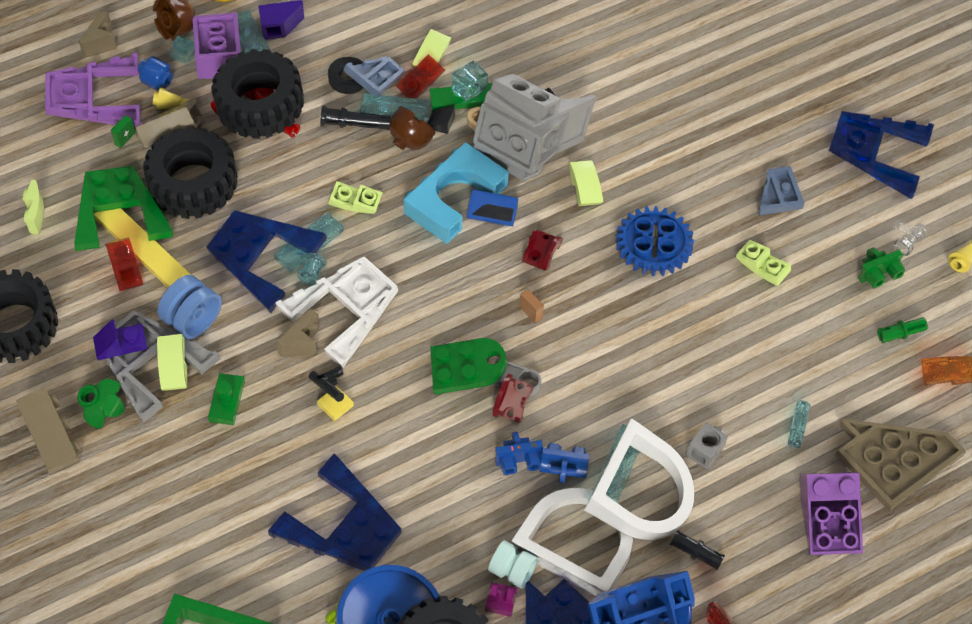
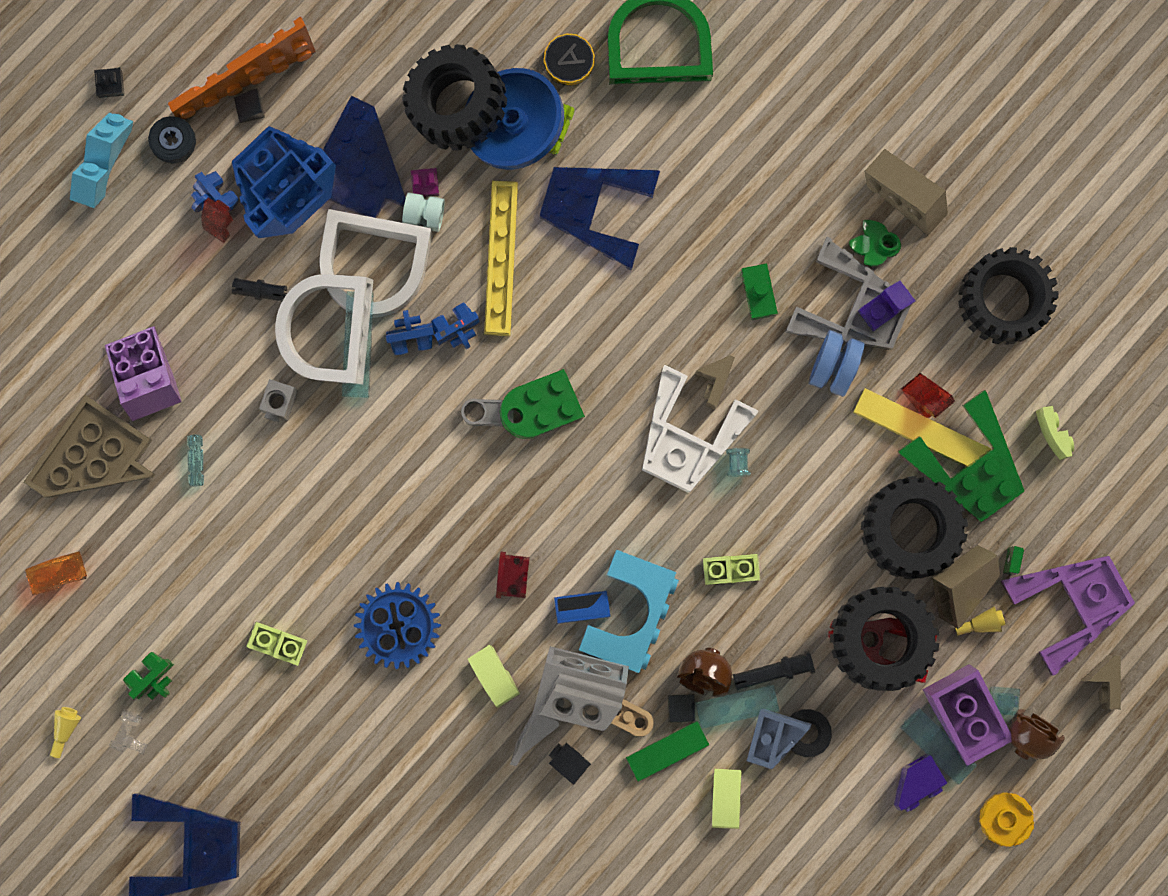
camera: 155 degrees right, 25 degrees up
(155, 73) = (1018, 652): blue head -> none
(172, 362) = (827, 303): yellowish green slope -> none
(245, 238) = (824, 466): clear blue wing -> none
(292, 257) = (756, 497): clear light blue tile -> none
(327, 382) = (667, 339): black hose -> none
(333, 408) = (653, 323): light yellow tile -> none
(421, 78) = (724, 755): clear red slope -> none
(452, 507) = (501, 258): none -> light yellow tile
(469, 81) = (666, 761): clear light blue brick -> none
(512, 398) = (481, 384): piece -> none
(531, 306) = (499, 497): medium nougat tile -> none
(780, 192) = (280, 742): sand blue wing -> none
(901, 330) = (112, 608): green axle -> none

